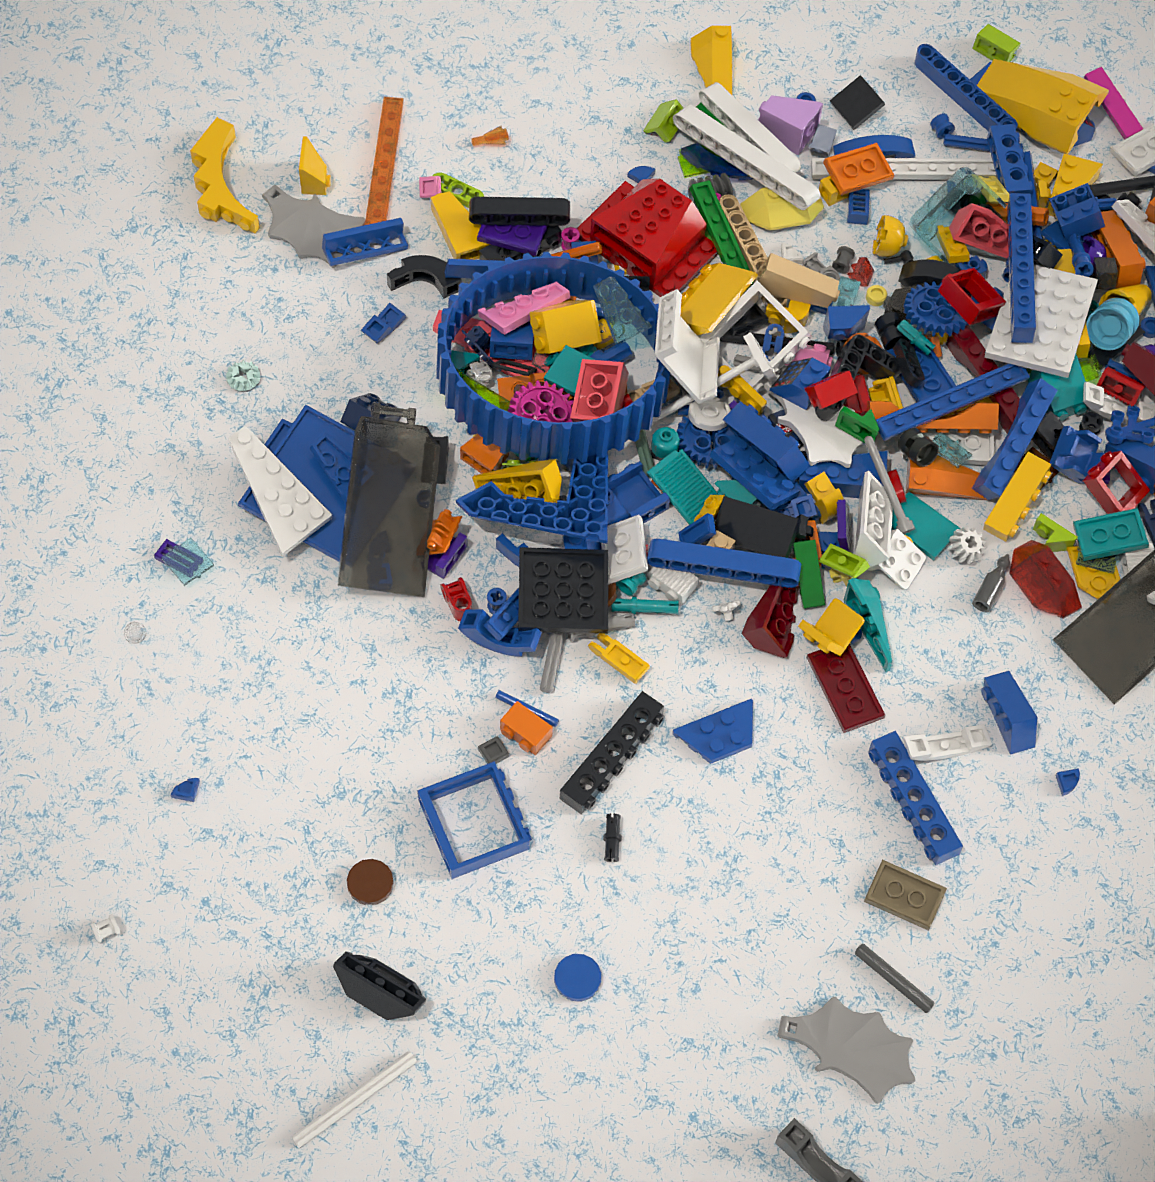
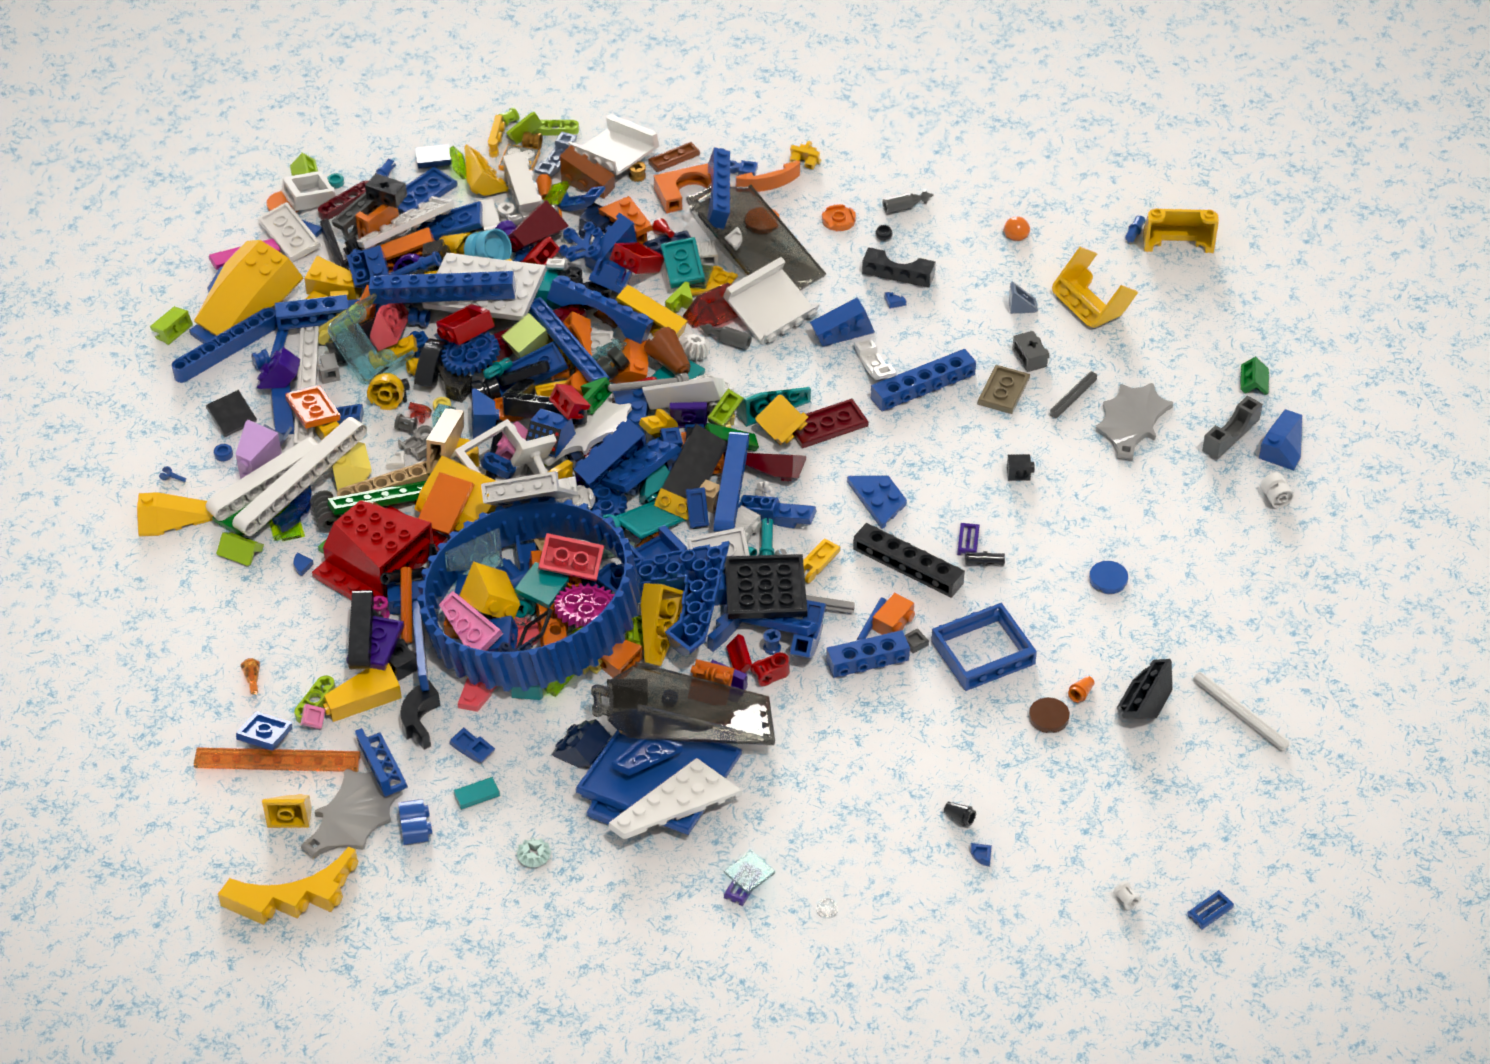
camera: 90 degrees left, 15 degrees down
(88, 1033) = (1214, 916): none -> blue tile
(238, 771) = (961, 813): none -> black cone
(289, 272) = (413, 821): none -> blue brick
(323, 327) = (476, 793): none -> teal tile
(402, 920) = (1079, 691): none -> orange cone
(415, 148) = (264, 730): none -> plate
(467, 664) = (867, 654): none -> blue brick
(479, 567) = (739, 654): none -> red tile
(591, 237) = (395, 576): none -> black pin
(640, 367) = (523, 553): none -> blue panel
(647, 825) = (970, 526): none -> dark purple tile
(695, 617) = (781, 513): none -> blue slope
(696, 282) = (446, 502): none -> orange tile
(759, 893) = (1019, 467): none -> black brick
(771, 59) = (168, 470): none -> blue hand
(918, 138) = (279, 370): none -> dark purple slope
(927, 186) = (329, 368): none -> light grey brick
(946, 512) = (668, 351): none -> dark orange cone
(965, 361) = (526, 336): none -> yellowish green slope
(977, 922) = (1030, 351): none -> dark grey brick
(1044, 630) = (769, 302): none -> white panel
(1066, 932) = (1020, 300): none -> sand blue slope
(1077, 1013) = (1073, 291): none -> yellow windscreen
(1116, 811) = (917, 273): none -> black arch

